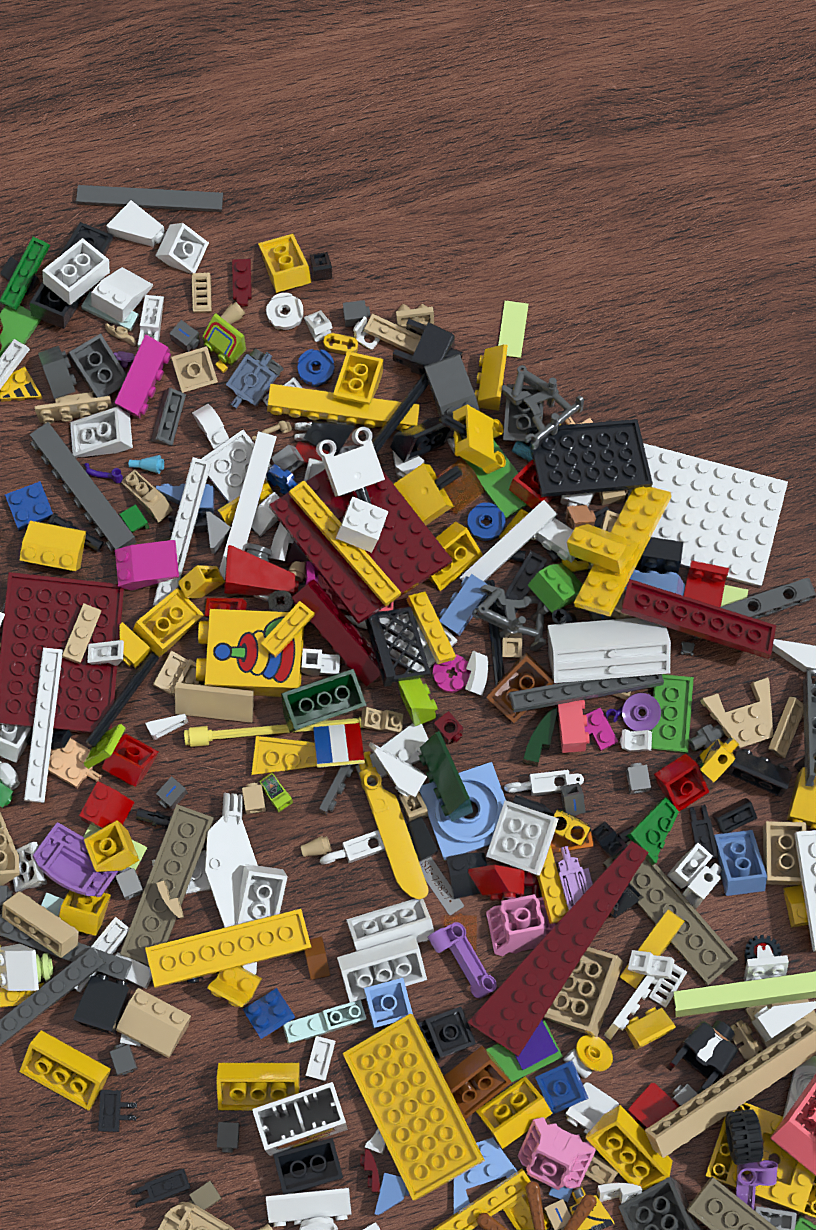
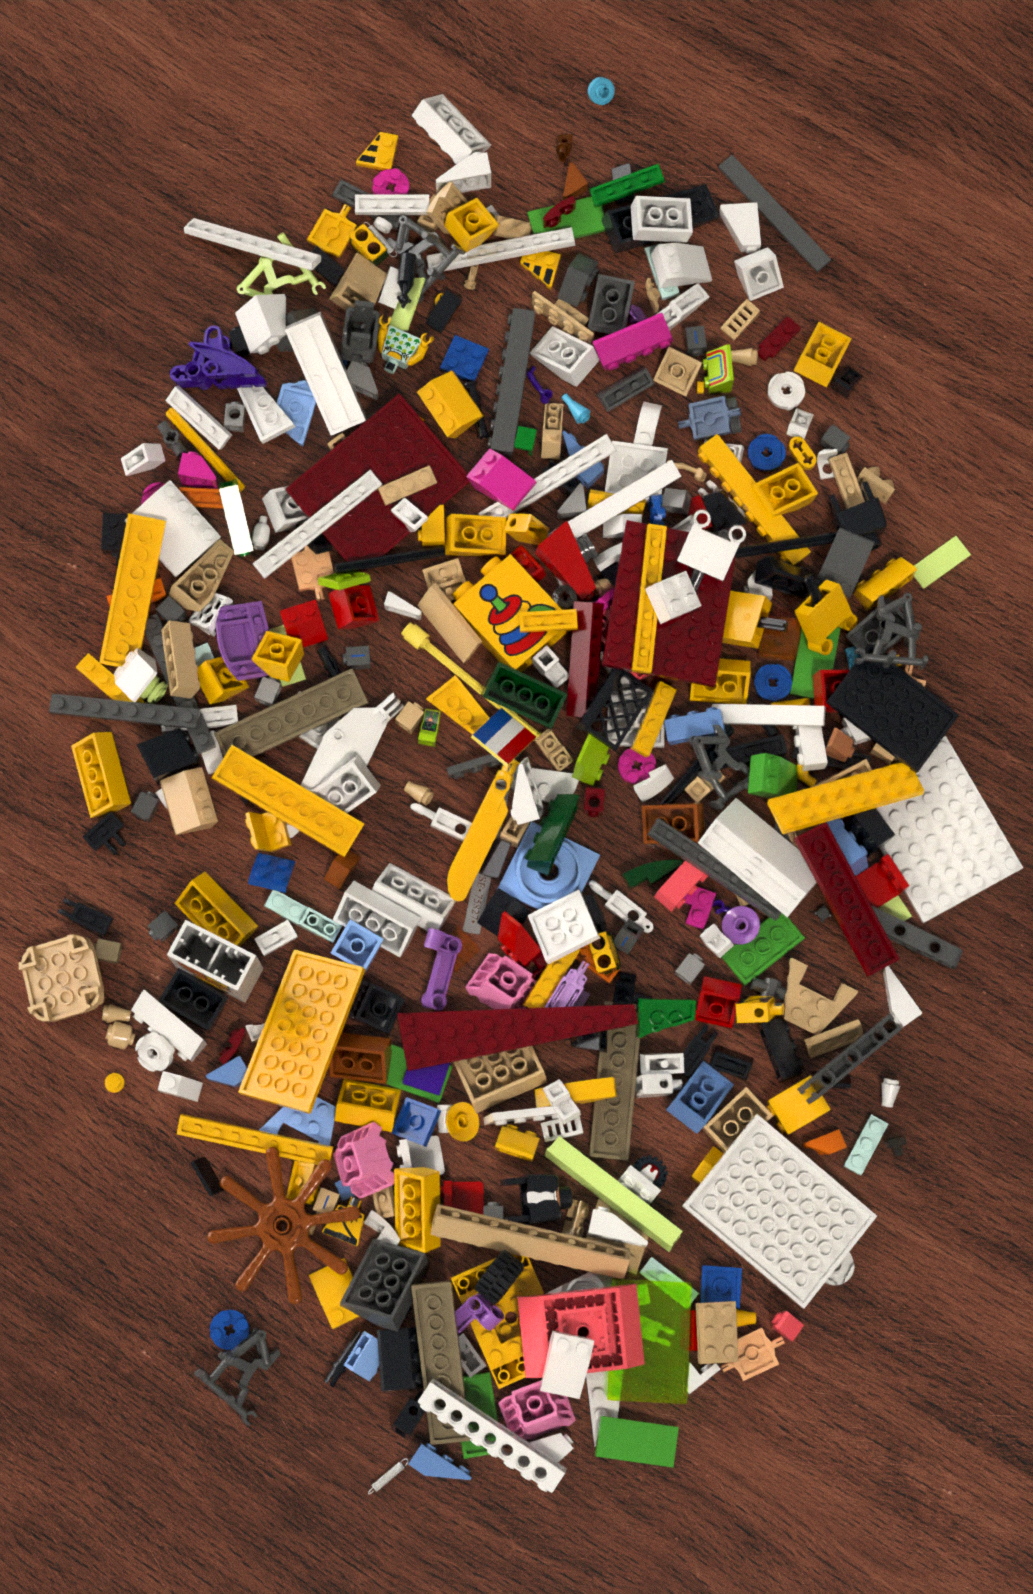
camera: 45 degrees right, 5 degrees up
(173, 904) = (280, 735): tan slope -> none
(562, 617) = (752, 802): black piece -> none
(601, 547) = (829, 779): yellow slope -> none

